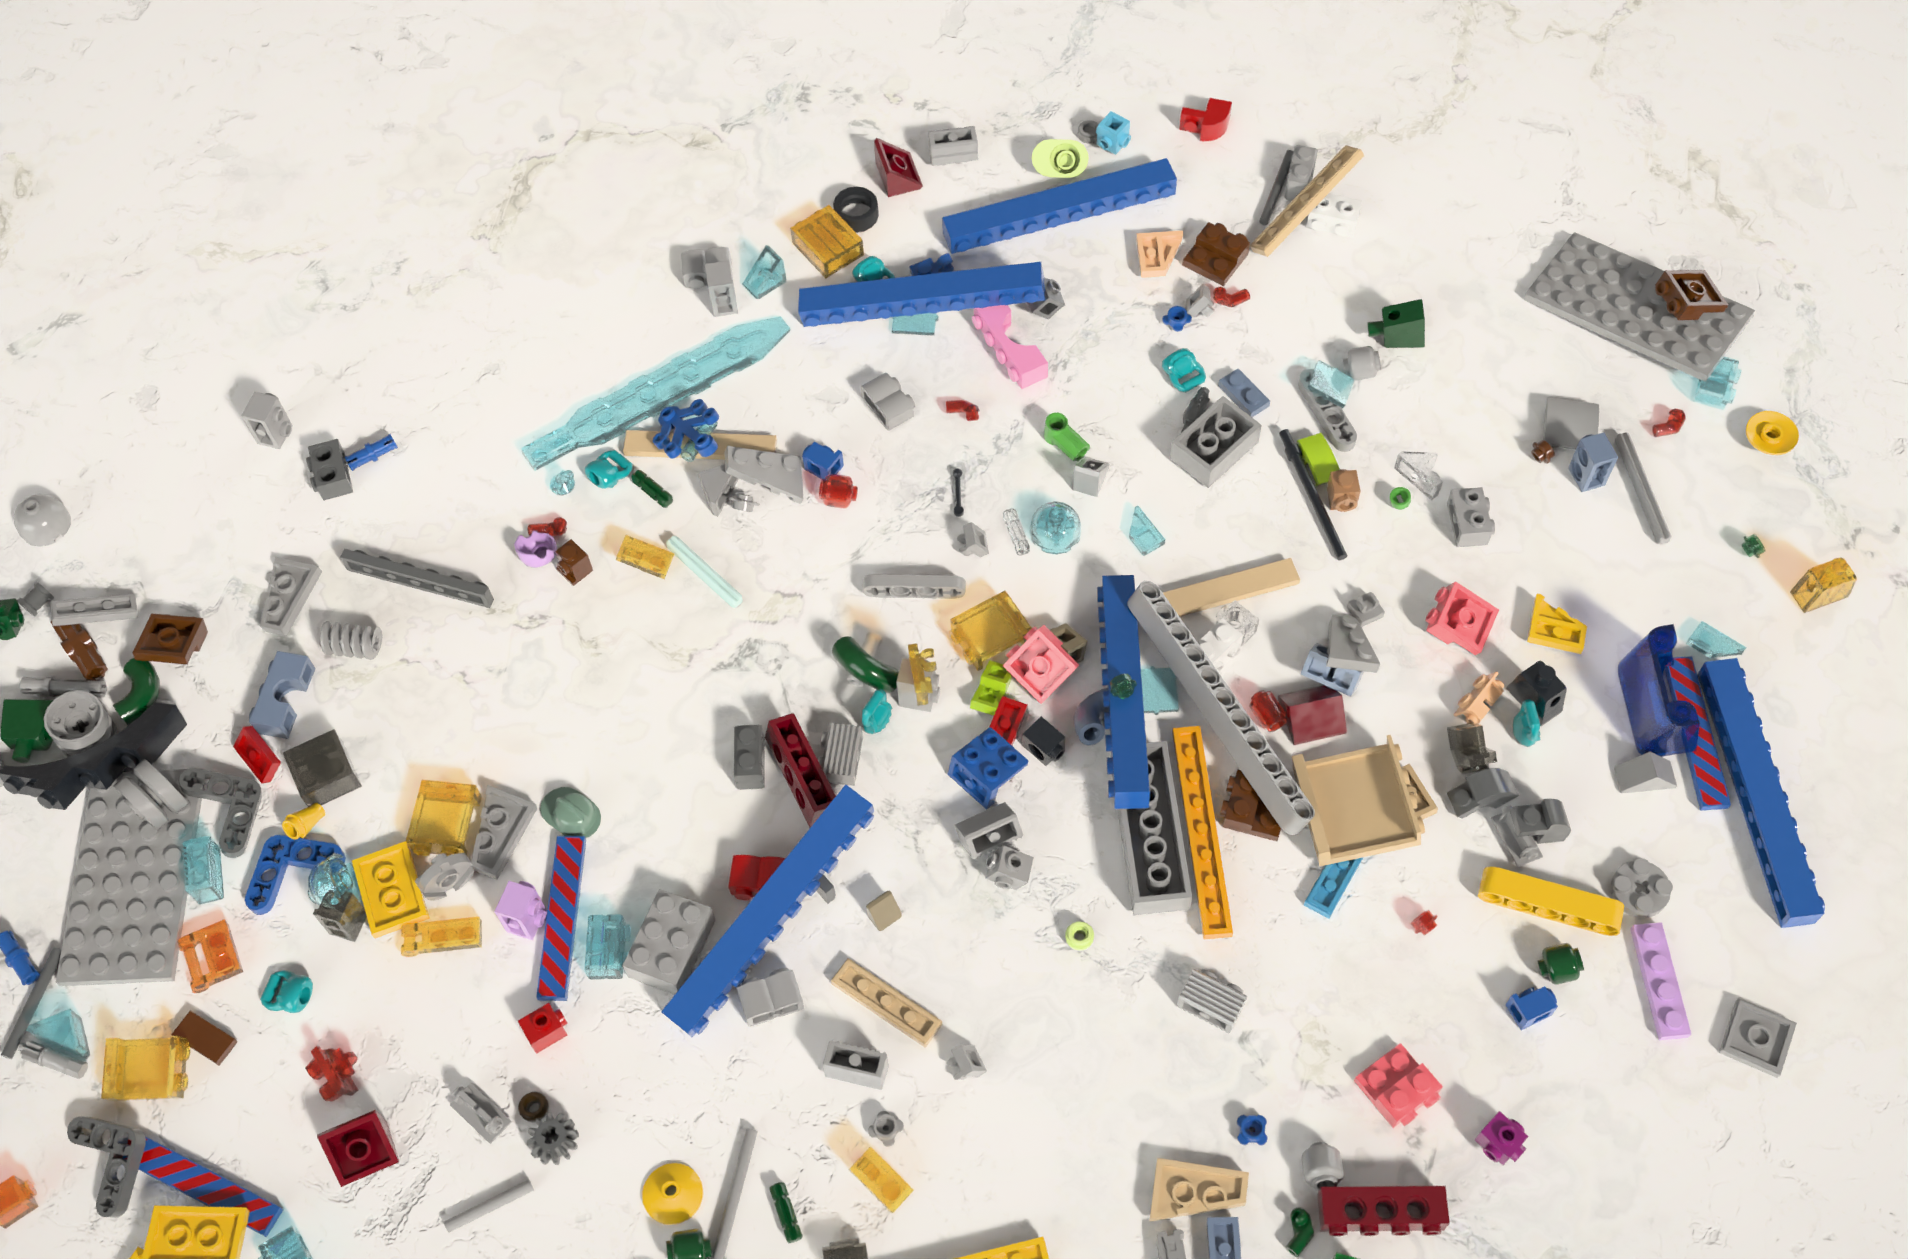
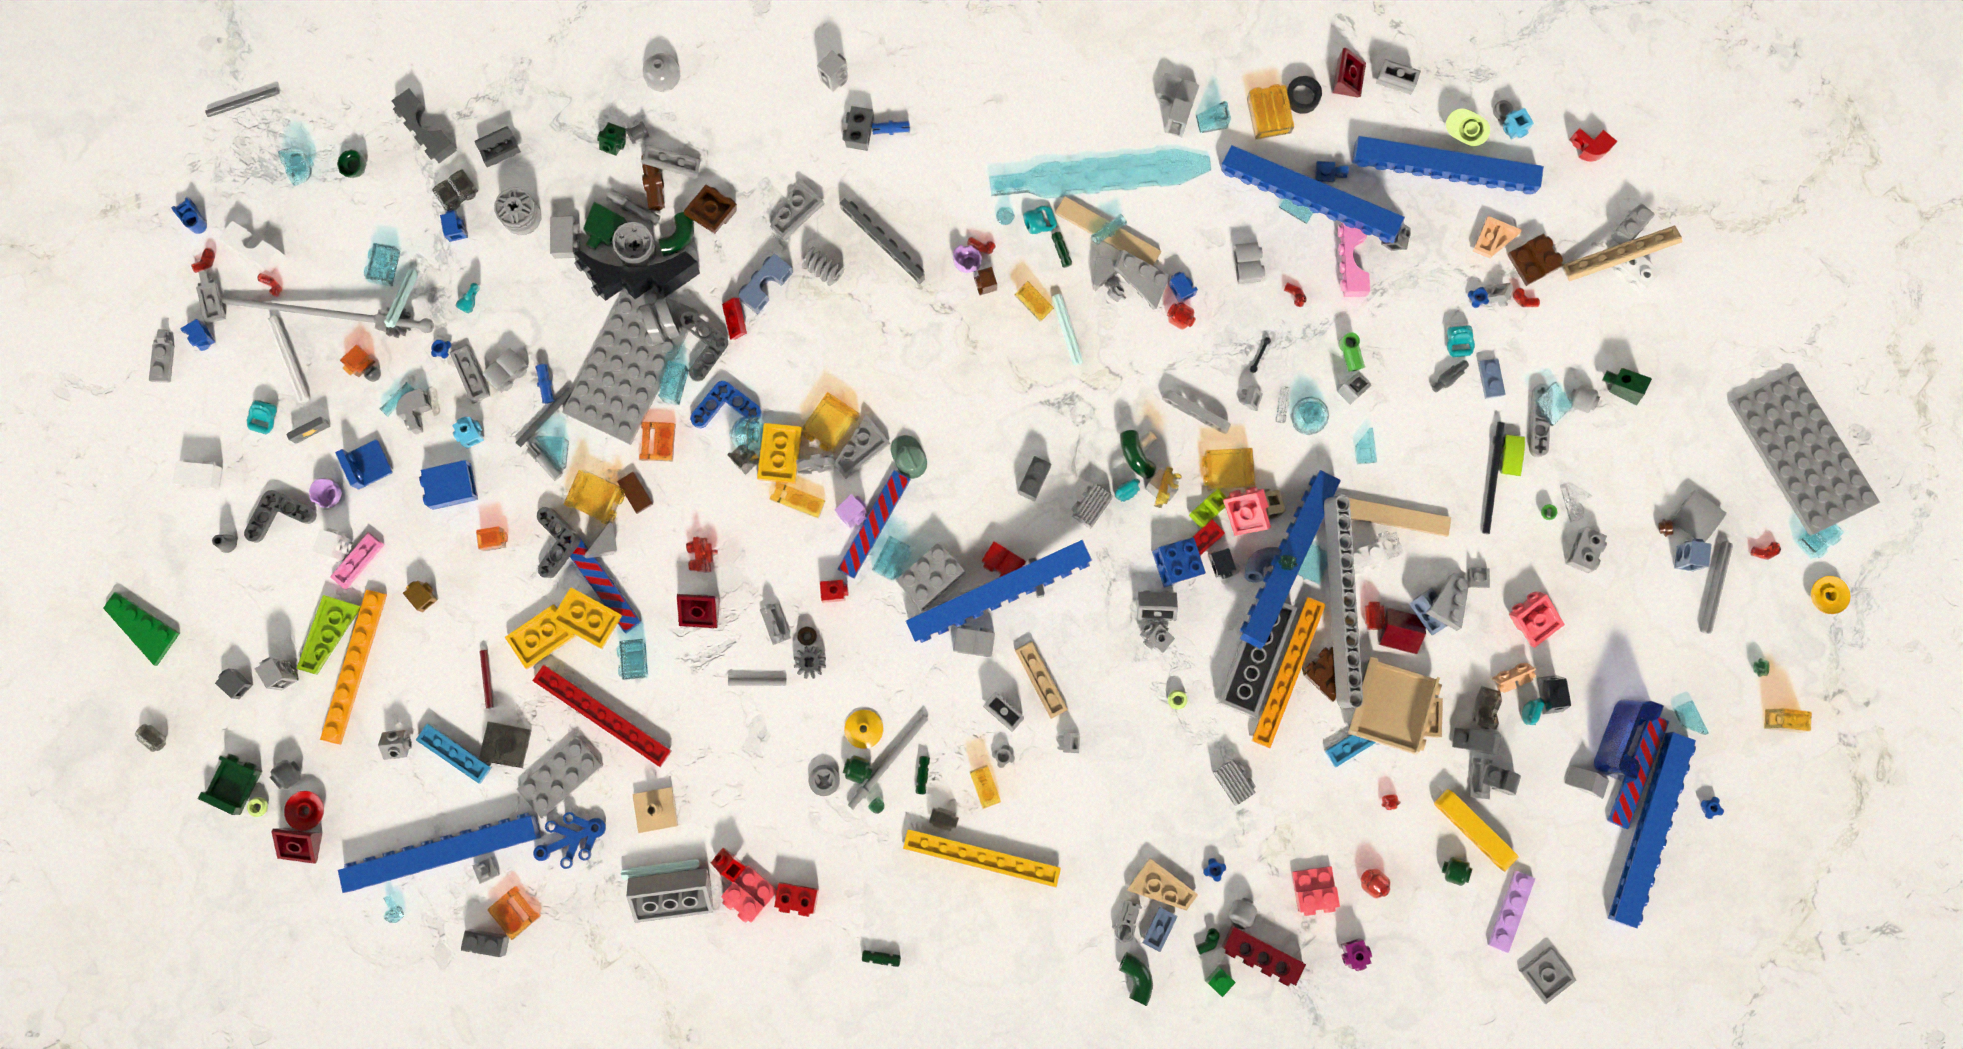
camera: 25 degrees right, 20 degrees up
(183, 1126) = (604, 543): none -> light grey slope
(293, 994) = (696, 492): teal piece -> none
(301, 822) = (745, 380): yellow cone -> none
(322, 769) = (770, 350): clear smoke brick -> none
(673, 417) = (1098, 202): blue plant -> none
(799, 766) = (1062, 505): dark red brick -> none
(871, 269) = (1288, 152): teal piece -> none
(883, 911) = (1067, 623): slope -> none
(1215, 441) = (1449, 408): light grey brick -> none
(1276, 188) = (1610, 225): dark grey bar -> none
(1343, 490) = (1514, 488): medium nougat brick -> none
(1469, 1033) = (1375, 883): none -> clear red head
(1532, 1006) = (1423, 887): blue brick -> none
(1555, 628) = (1593, 655): yellow wing -> none
(1645, 873) = (1548, 850): light grey plate -> none
(1689, 293) = (1841, 469): reddish brown plate -> none
(1804, 734) = (1706, 807): none -> blue plate

